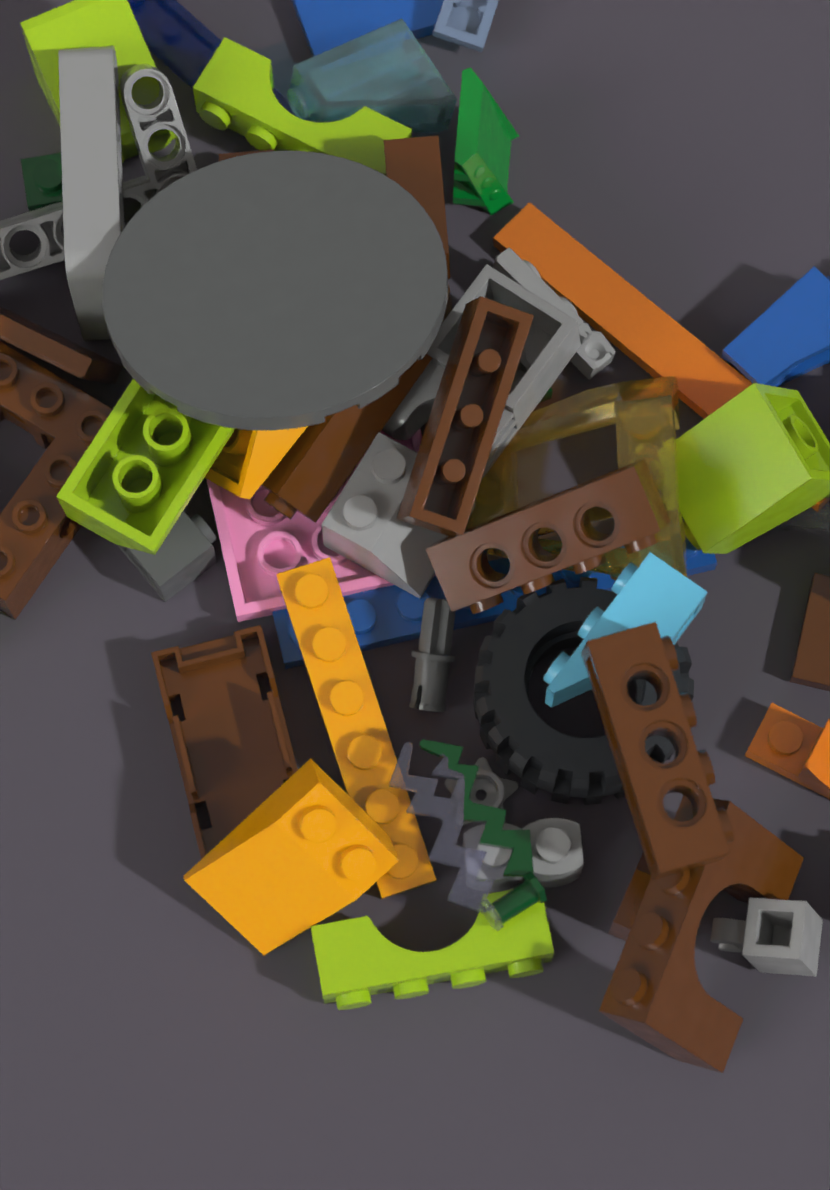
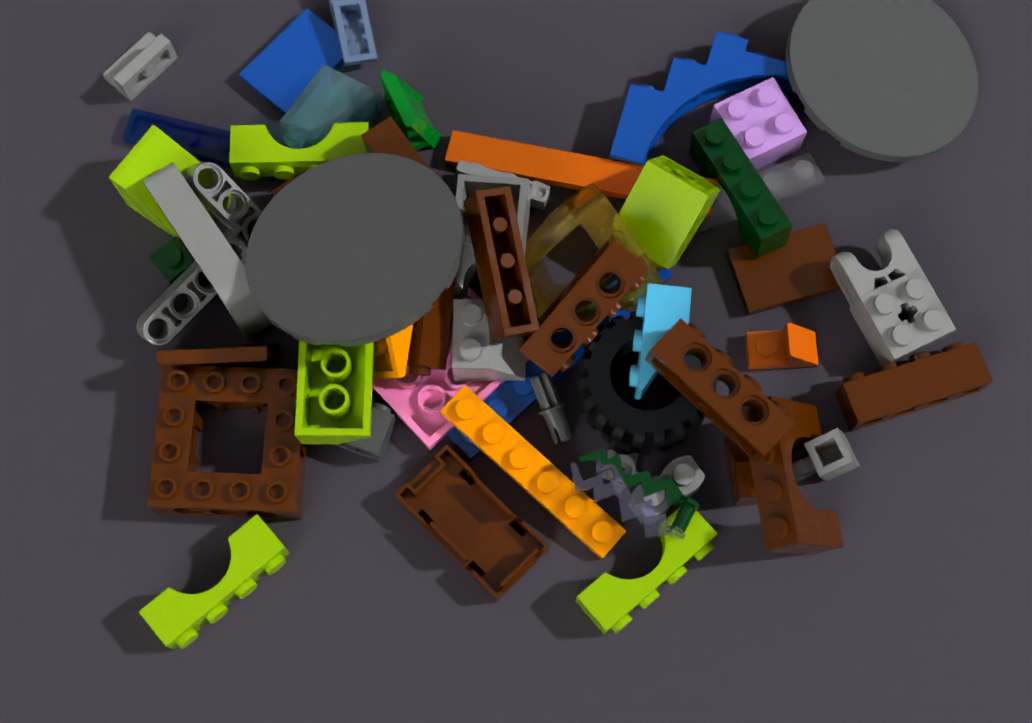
camera: 30 degrees left, 0 degrees up
(293, 861) = (547, 565): light orange slope -> none

